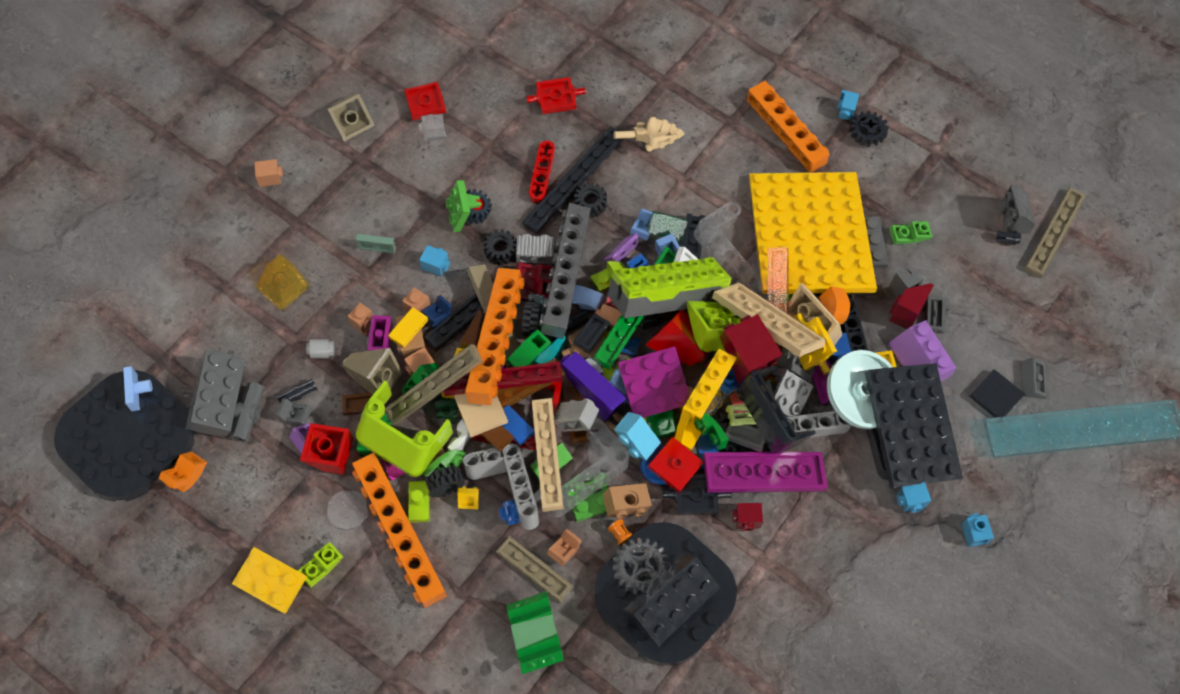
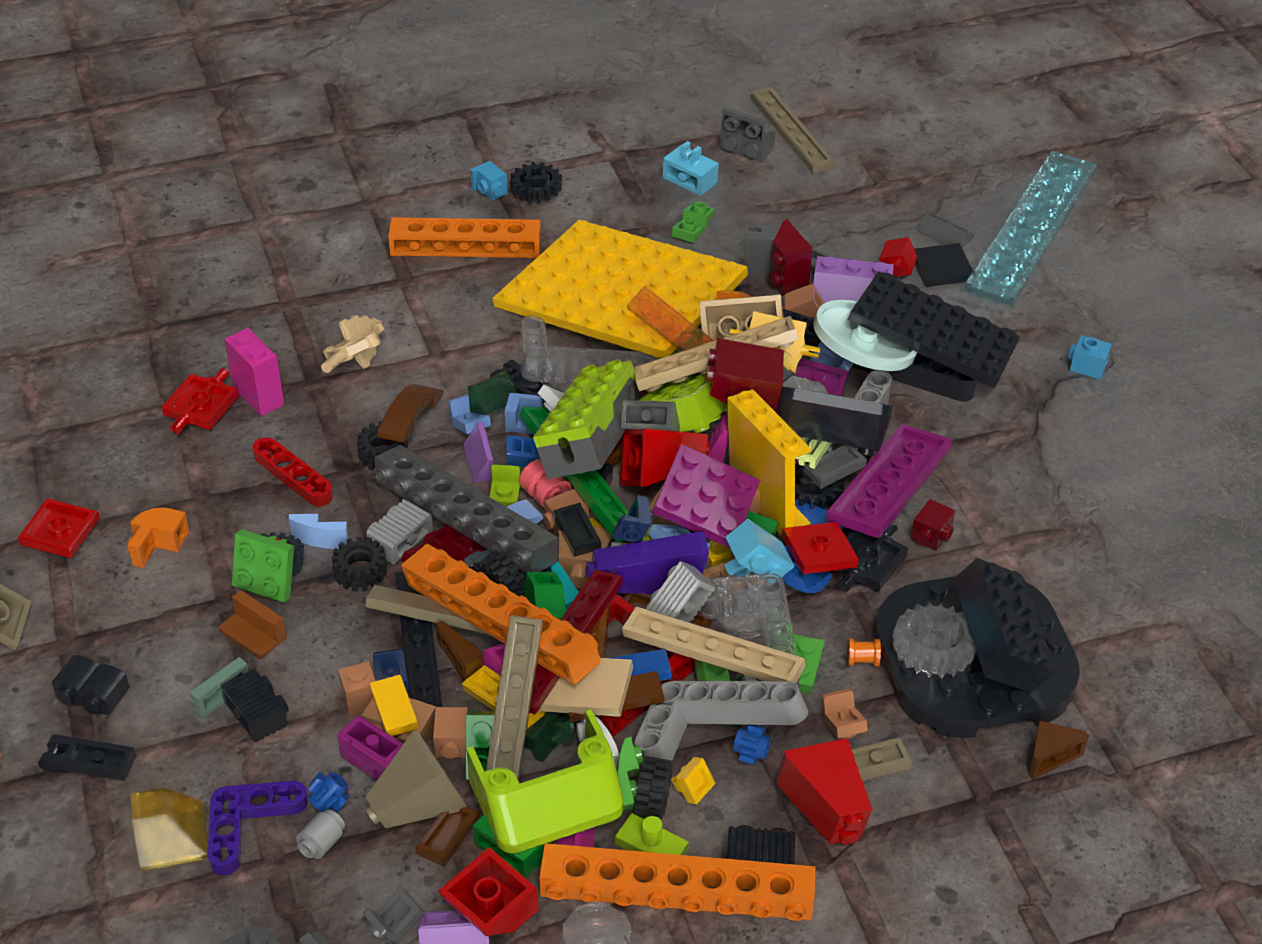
camera: 55 degrees left, 20 degrees down
(298, 391) = (360, 900): black pin -> none
(299, 220) = (87, 757): none -> black plate
(314, 303) = (241, 808): none -> dark purple beam
(338, 188) = (90, 685): none -> black brick
(345, 334) = (328, 791): none -> blue gear
(361, 318) = (322, 756): nougat brick -> none
(376, 265) = (255, 704): none -> black brick
(425, 229) = (253, 626): none -> dark orange panel
(432, 127) = (109, 538): clear brick -> none
(434, 260) = (312, 638): dark azure brick -> none
(443, 558) = (761, 845): none -> black brick
(451, 140) = (156, 529): none -> orange brick
(495, 570) = (827, 789): none -> red slope
(507, 213) = (317, 533): none -> light blue slope
(534, 632) = (945, 799): green slope -> none
(571, 181) = (336, 451): black tile -> none
(586, 104) = (254, 371): none -> dark pink brick
(609, 360) = (635, 525): none -> dark blue bracket
(620, 672) = (1055, 747): none -> reddish brown slope
(621, 191) = (405, 408): none -> reddish brown slope
(635, 494) = (830, 618): medium nougat brick -> none
(687, 317) = (649, 415): none -> dark grey slope
(709, 426) = (813, 487): green slope -> none
(879, 339) = (804, 301): none -> nougat brick
(913, 497) = (1015, 382): dark azure brick -> none
(956, 201) = (690, 169): none -> medium azure brick
(973, 366) = (901, 254): none -> red brick
(1008, 237) = (772, 156): black pin -> none

